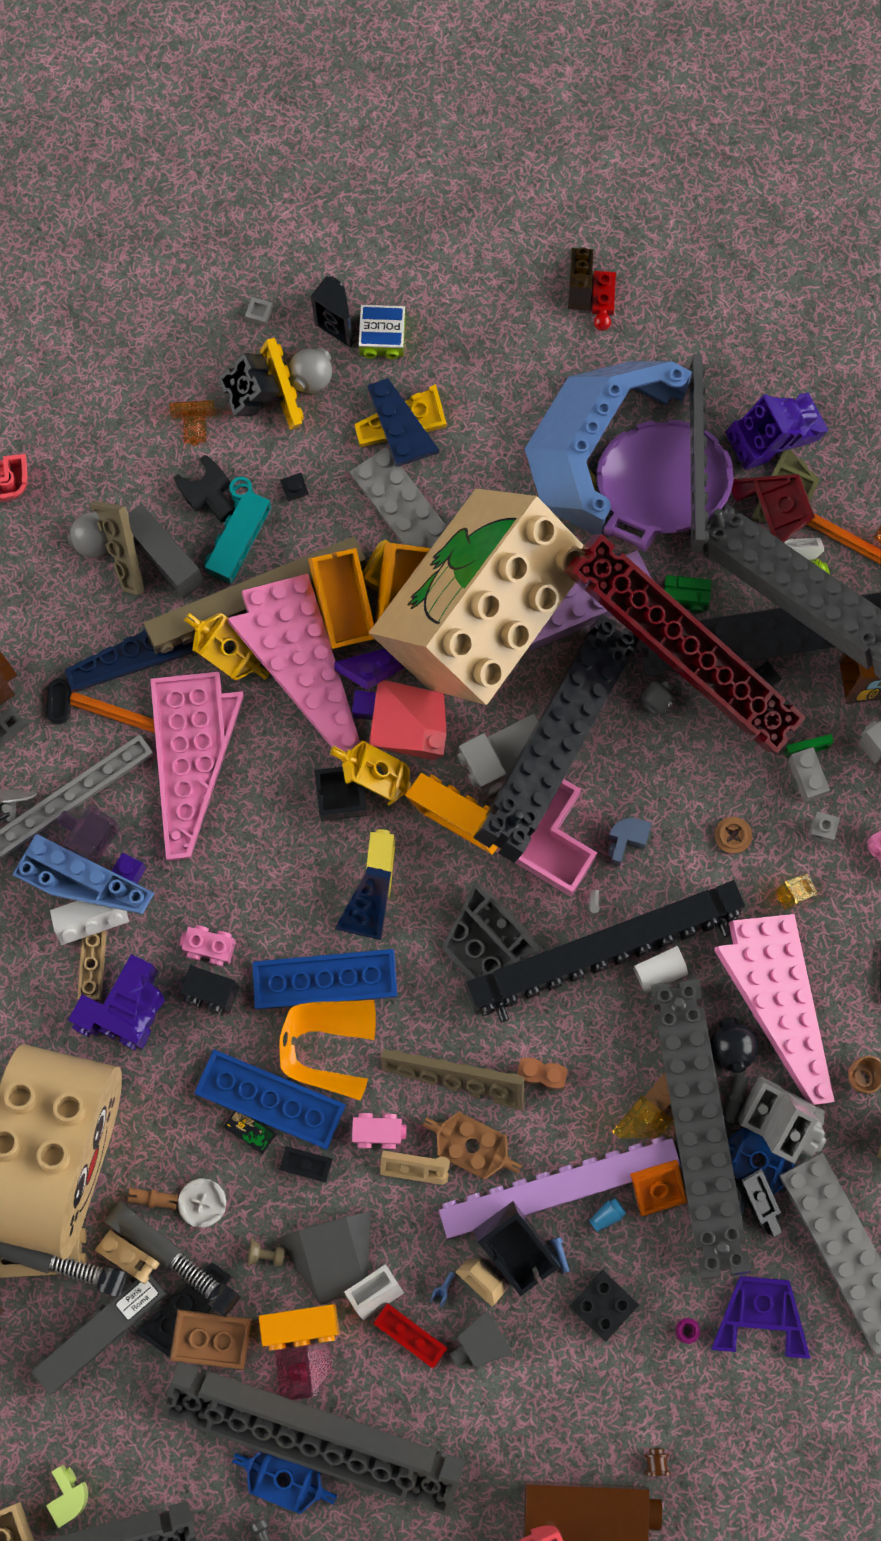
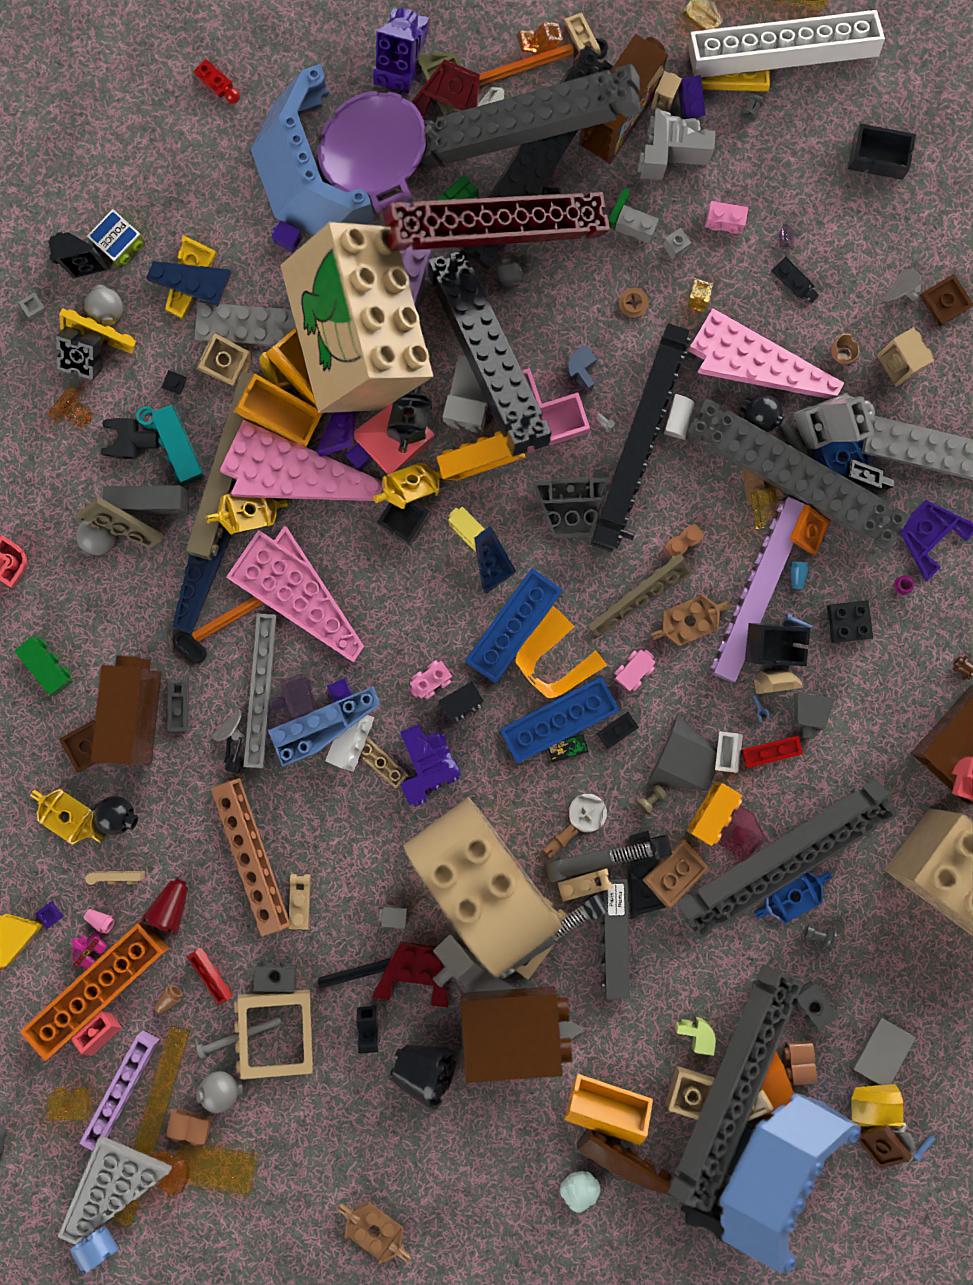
camera: 50 degrees left, 10 degrees up
(352, 513) = (224, 360): none -> tan slope
(415, 1167) = (675, 666): tan plate -> none
(429, 728) = (409, 428): none -> black plate
(514, 473) = (286, 236): none -> dark purple brick
(580, 278) = (191, 83): dark brown slope -> none
(698, 459) = (379, 111): dark grey plate -> none

